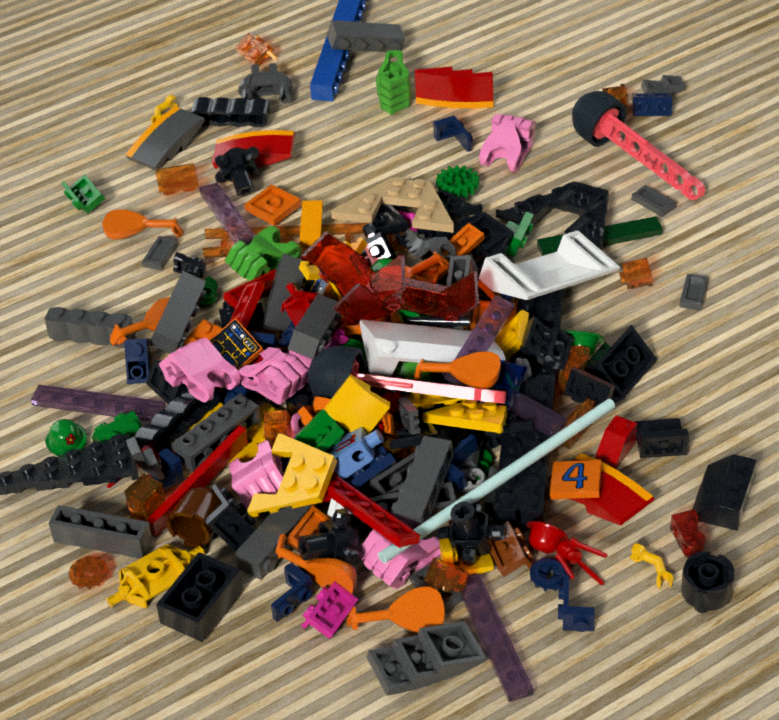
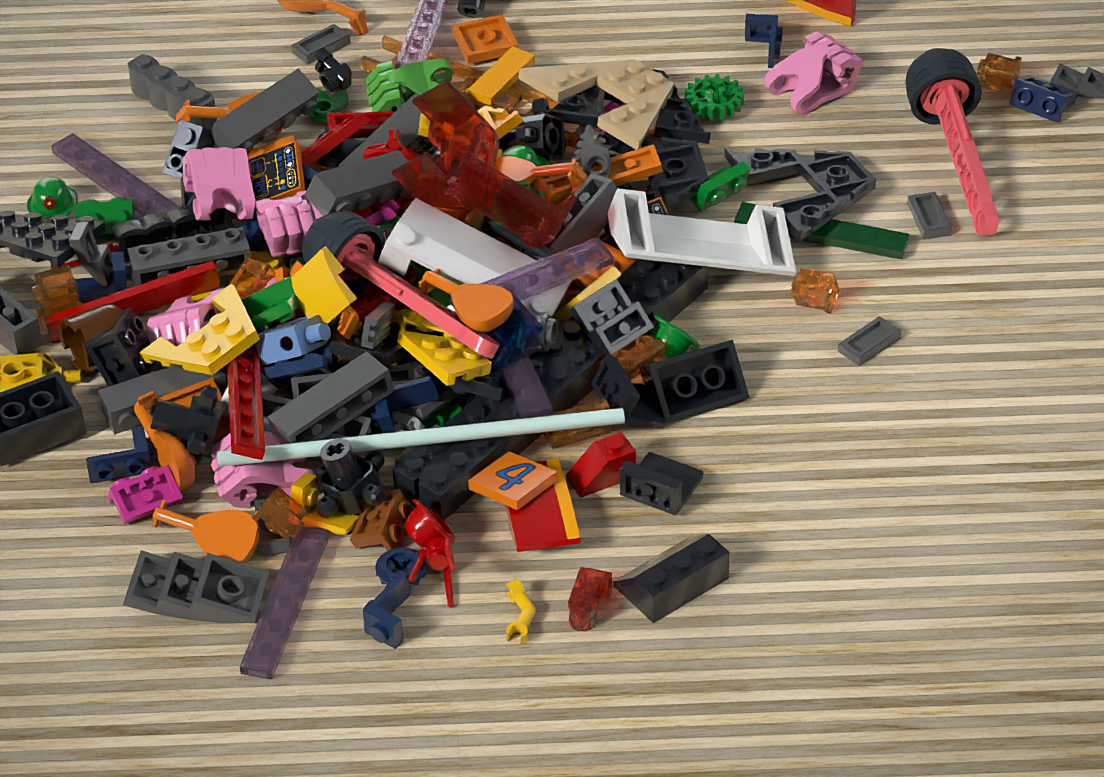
camera: 30 degrees right, 0 degrees up
(707, 581) = (551, 654): black brick -> none

